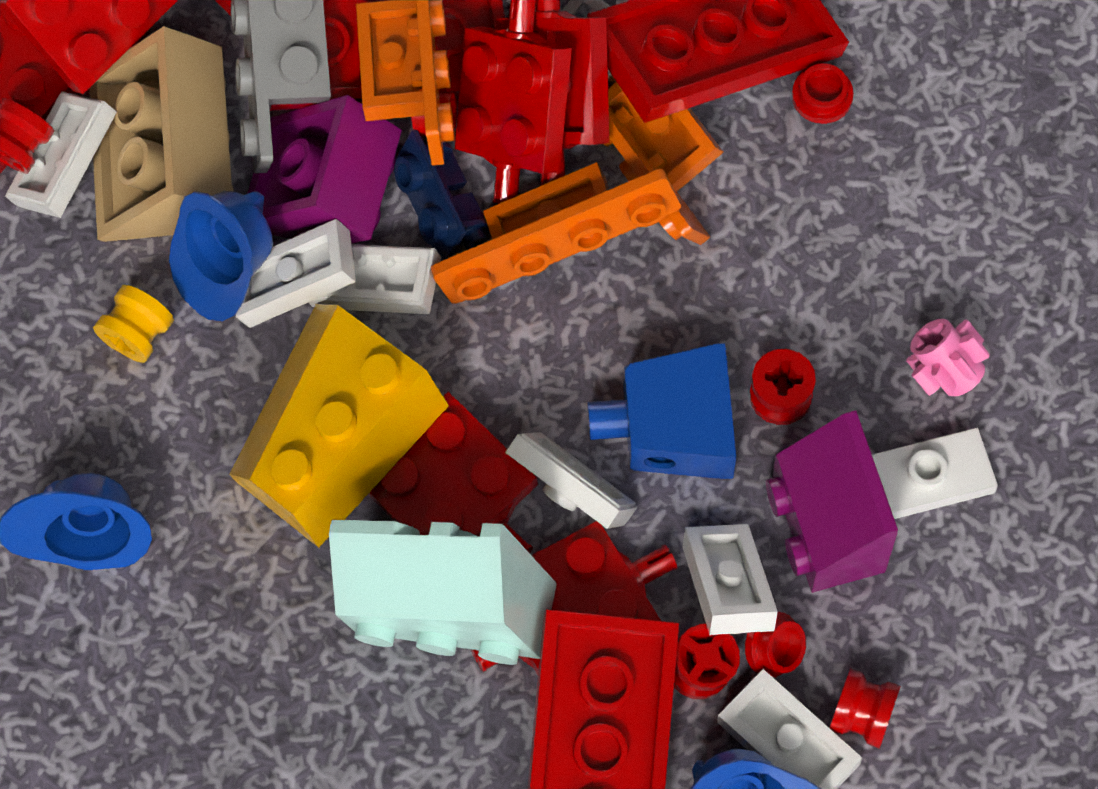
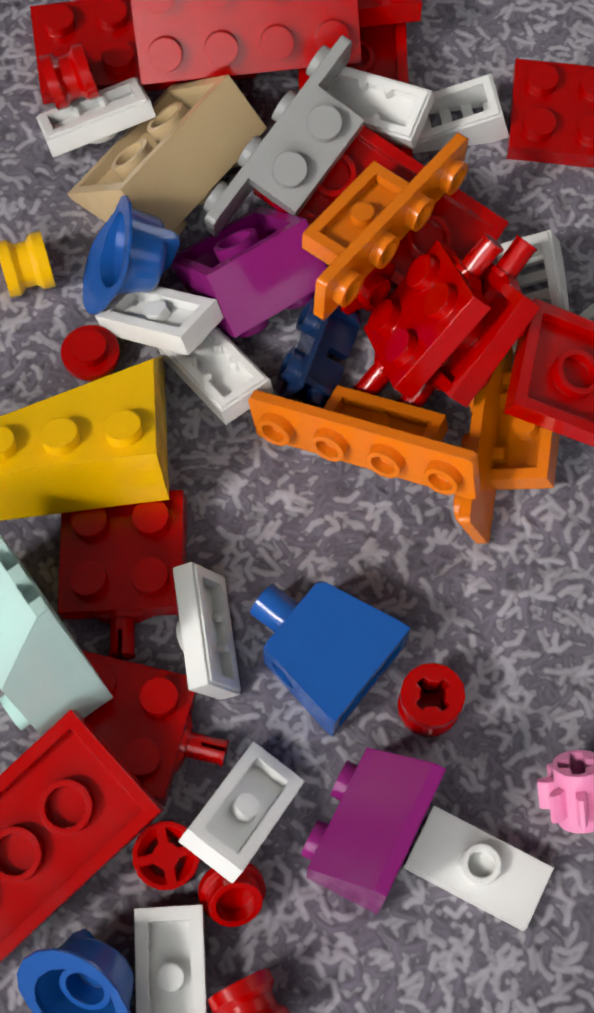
camera: 40 degrees right, 0 degrees up
(258, 350) = (90, 352): none -> red plate

